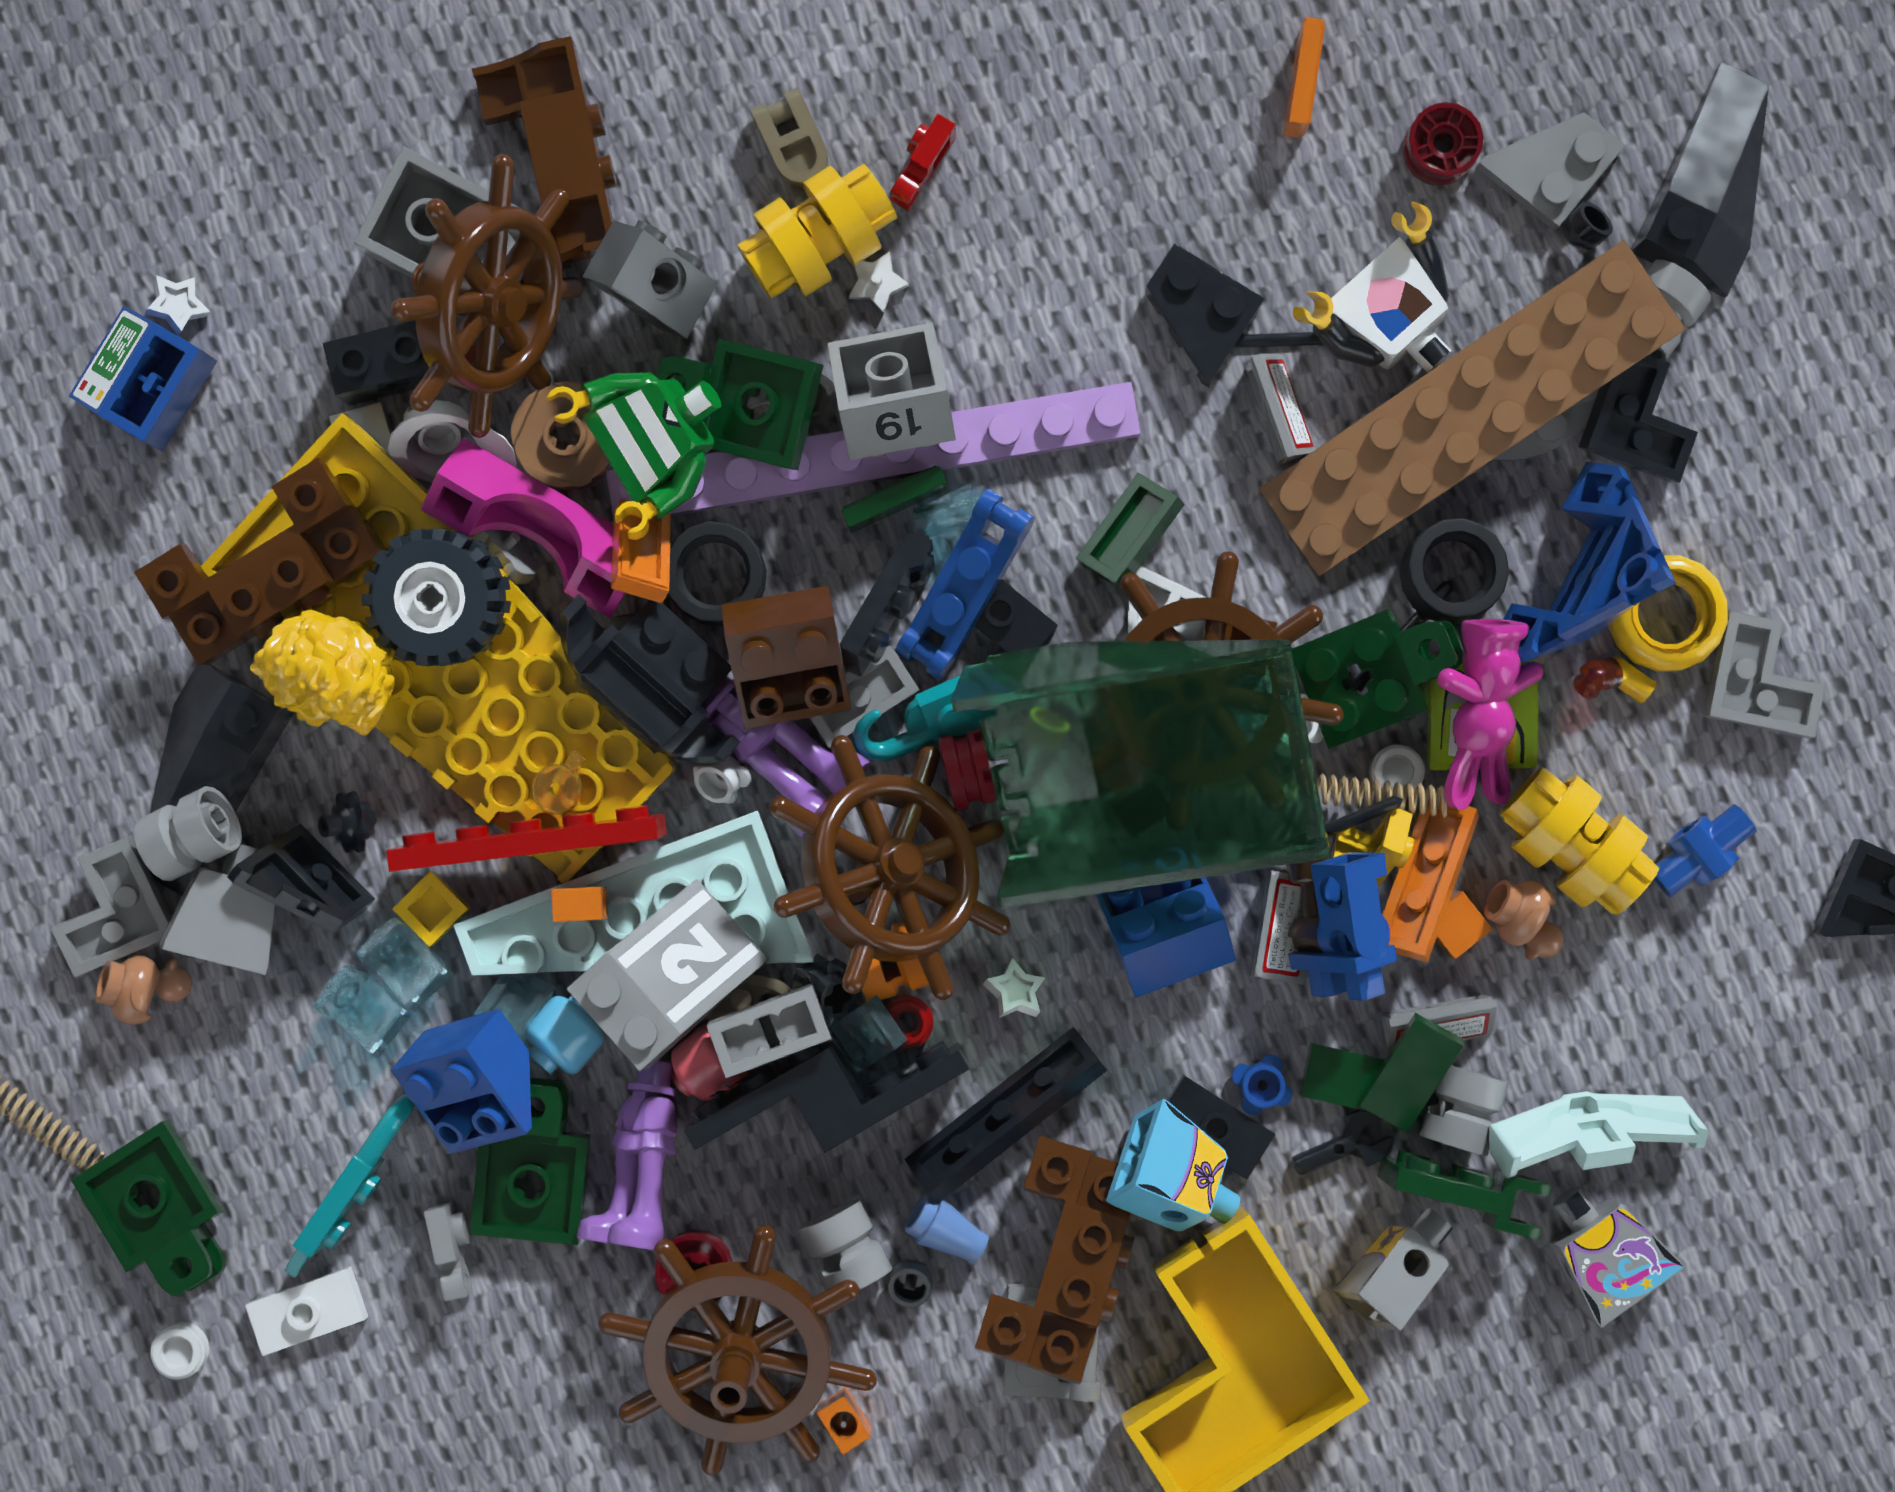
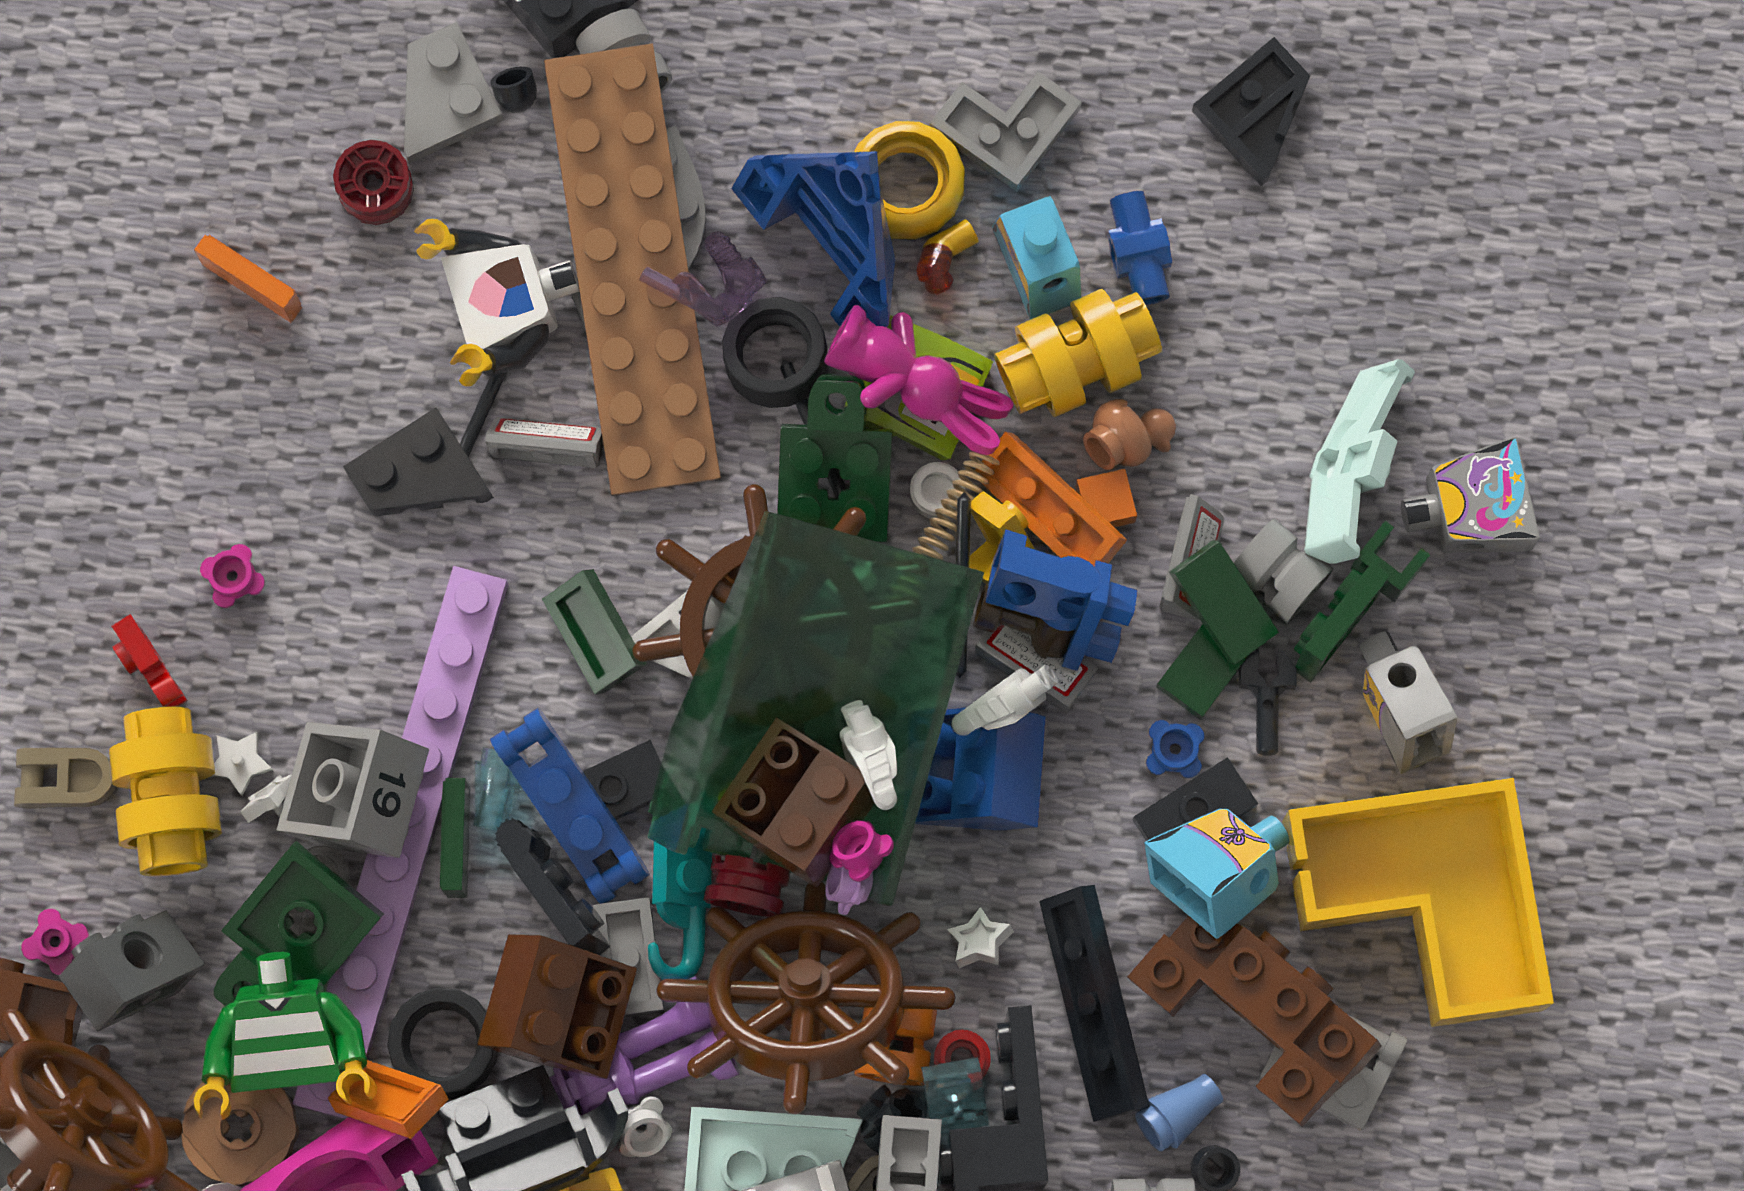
camera: 65 degrees left, 10 degrees down
(659, 215) = (51, 926): none -> dark pink plate
(853, 321) = (267, 799): none -> white piece
(1007, 859) = (845, 891): none -> lavender plate
(1034, 179) = (217, 569): none -> dark pink plate
(1037, 846) = (859, 849): none -> dark pink plate
(1055, 781) = (794, 801): none -> reddish brown slope
(1125, 827) = (871, 751): none -> white helmet
(1231, 922) = (1006, 701): none -> white helmet
(1506, 510) = (739, 276): none -> clear purple helmet
(1629, 433) = (723, 137): black plate -> none
(1653, 764) = (1037, 253): none -> medium azure torso

